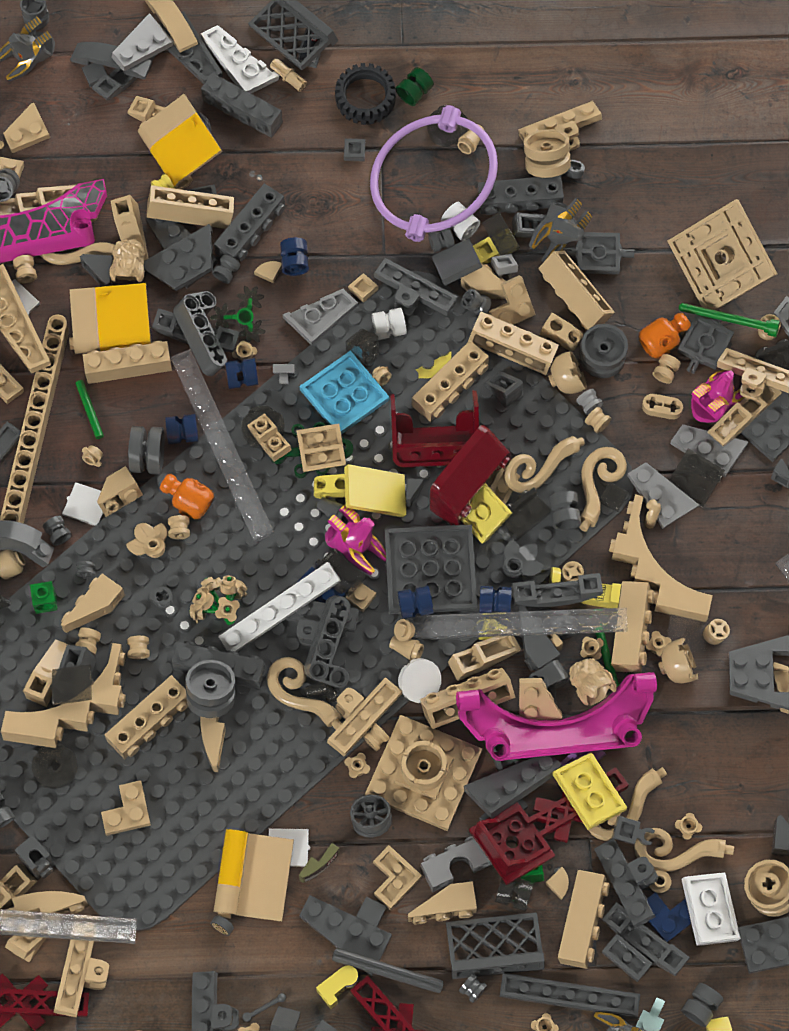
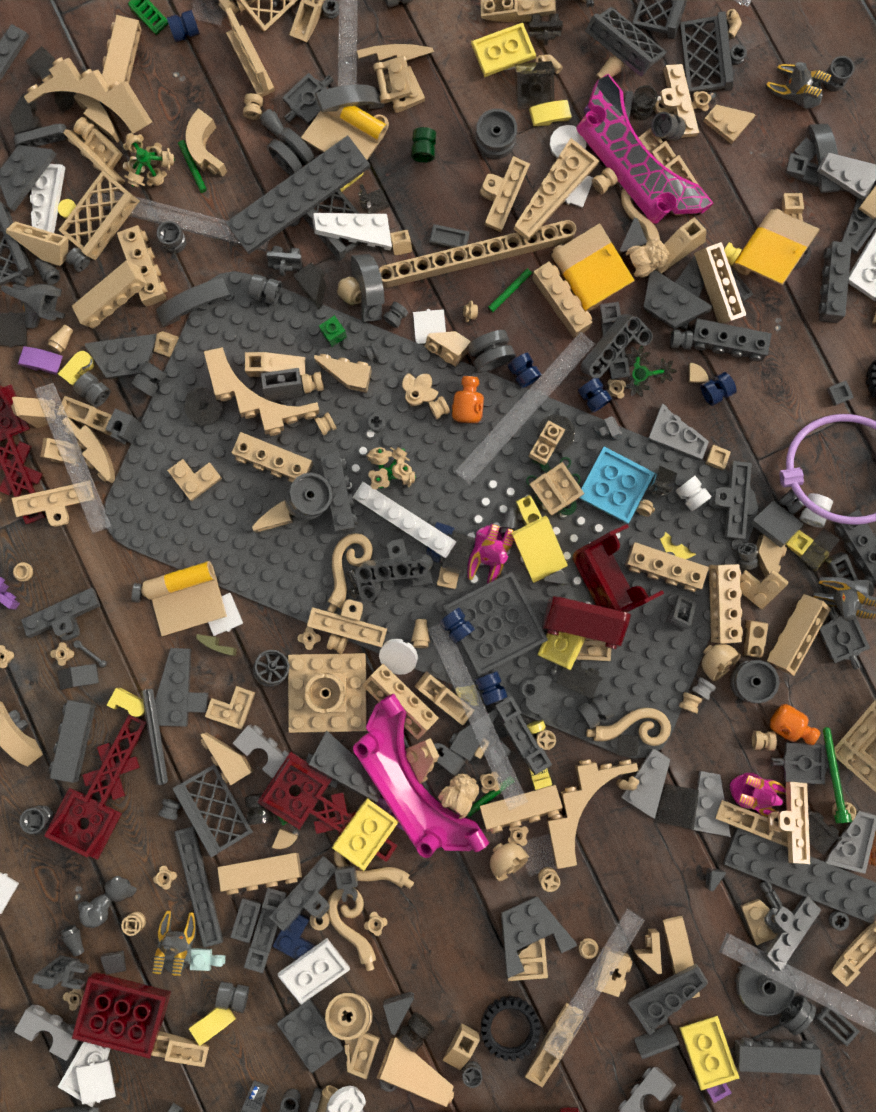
camera: 65 degrees right, 15 degrees up
(71, 684) = (264, 387): clear smoke piece -> none
(404, 630) = (430, 626): tan plate -> none
(504, 265) = (793, 564): light grey tile -> none
(562, 450) = (645, 684): tan plant -> none
(662, 406) = (733, 749): tan beam -> none

